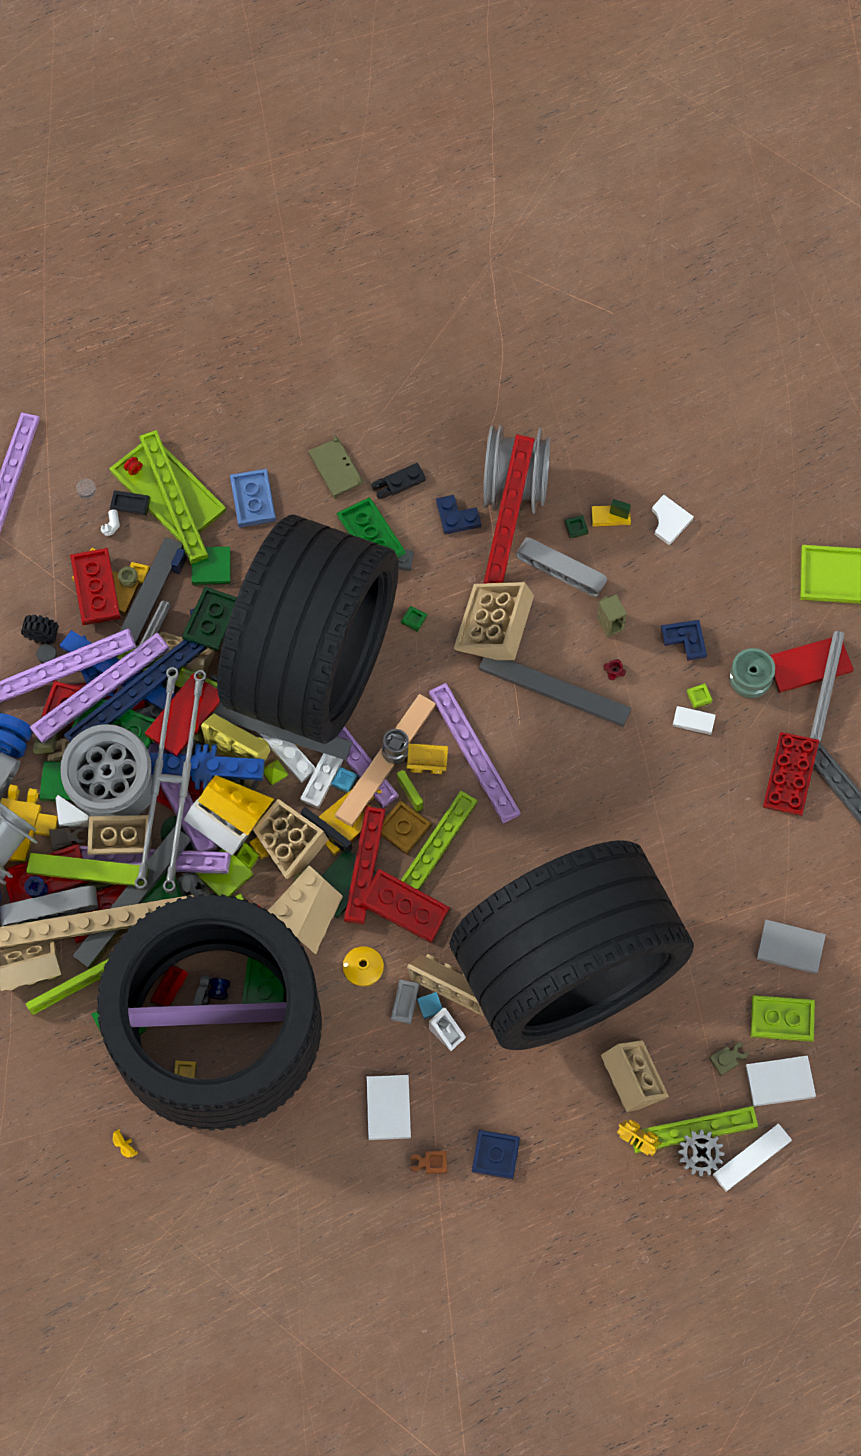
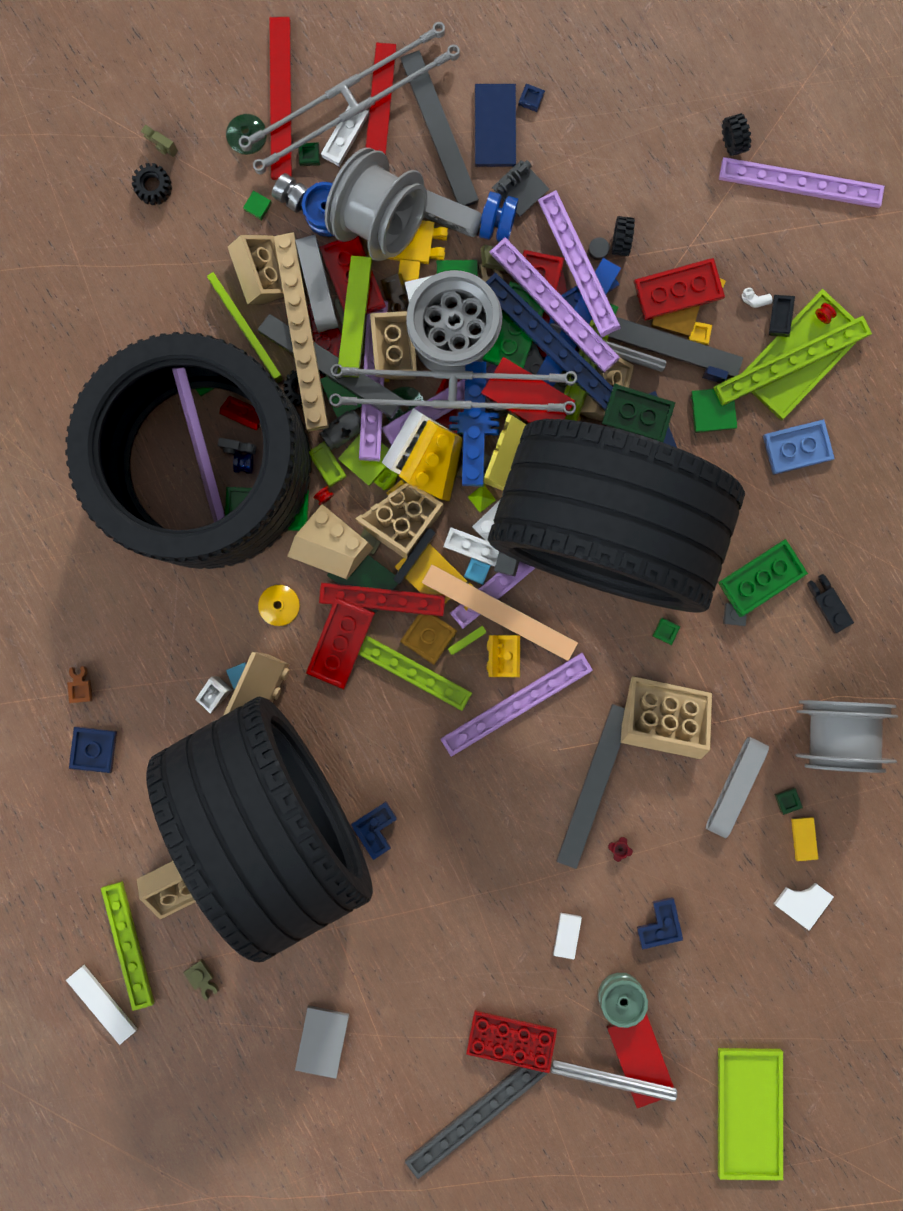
camera: 85 degrees right, 20 degrees up
(40, 889) = (334, 272): clear blue wheel -> none
(85, 488) = (797, 267): clear tile -> none
(126, 1149) = (79, 387): yellow piece -> none
(127, 576) = (693, 322): olive tile -> none
(185, 1068) = (159, 437): yellow tile -> none
(337, 473) = (836, 536): olive door -> none
(388, 1107) = (134, 641): white tile -> none
(395, 746) = (509, 622): flat silver wheel -> none
(405, 1001) = (240, 649): light grey tile -> none
(455, 520) = (787, 667): dark blue plate -> none
(509, 509) = (796, 730): red tile -> none
(611, 615) = (680, 845): olive piece -> none
(620, 509) = (810, 850): dark green tile -> none
(632, 1128) = (107, 894): yellow hinge -> none
(699, 696) = (596, 941): lime tile -> none
(708, 1160) = (107, 960): light grey gear -> none
(780, 1081) = (180, 1032): white tile -> none
(782, 1018) = (246, 1033): lime tile -> none

